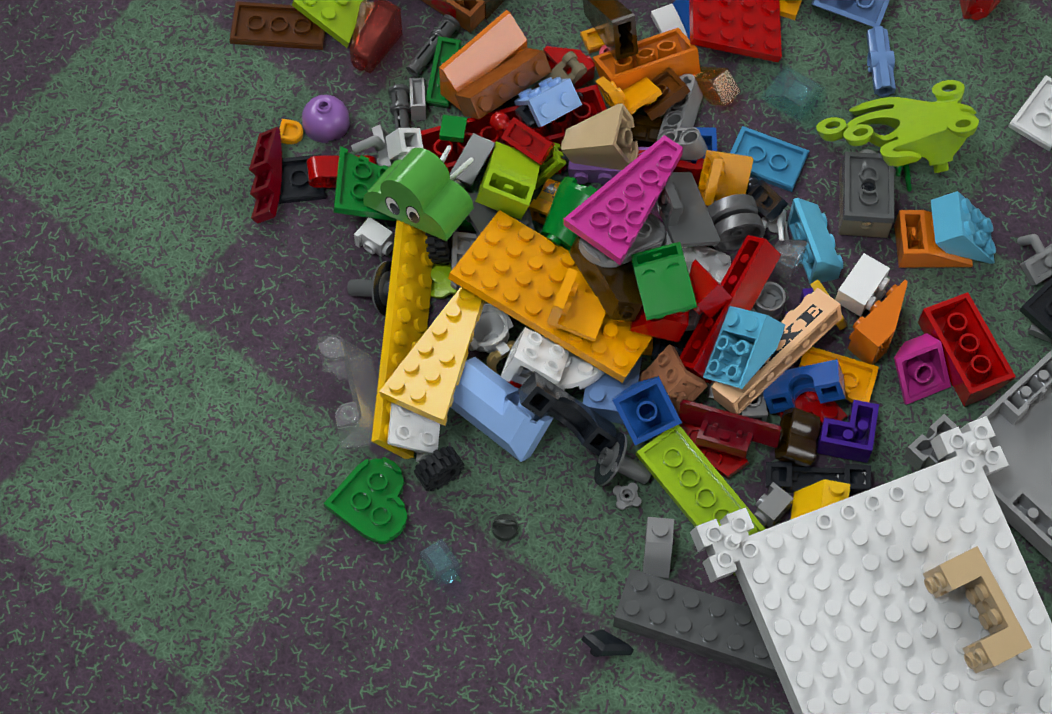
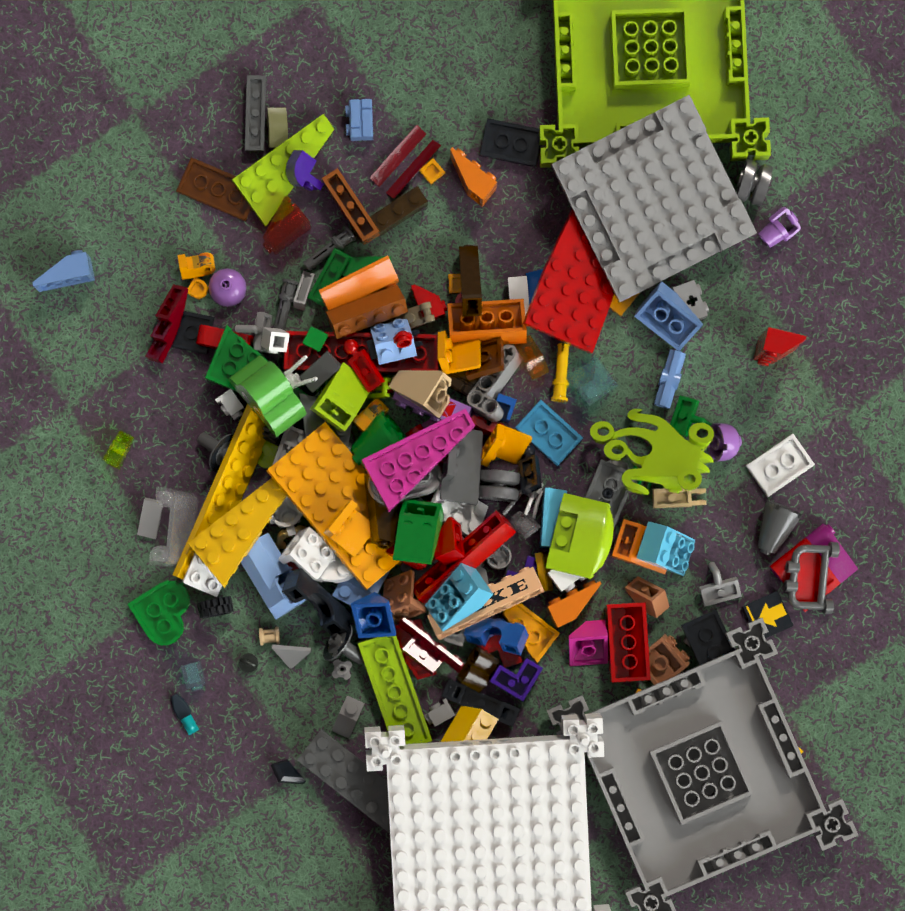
camera: 15 degrees right, 20 degrees up
(124, 154) = (67, 272): none -> medium blue slope
(252, 331) = (118, 449): none -> clear neon green leg
(280, 106) = (196, 266): none -> light orange leg
(319, 393) = (150, 518): none -> light grey tile
(443, 616) = (183, 713): none -> black piece
(520, 485) = (269, 636): none -> tan bush
(556, 496) = (291, 654): none -> light grey slope
(560, 81) = (403, 339): none -> red plate
(757, 100) = (560, 382): none -> yellow pin
(860, 238) = (581, 536): none -> lime slope
(915, 85) = (685, 415): none -> green plate
(937, 184) = (664, 499): none -> tan hinge
(975, 284) = (654, 596): none -> nougat slope
(980, 98) = (724, 443): none -> medium lavender cylinder
(996, 615) = (536, 882): tan plate -> none
(1021, 351) = (666, 659): none -> nougat plate

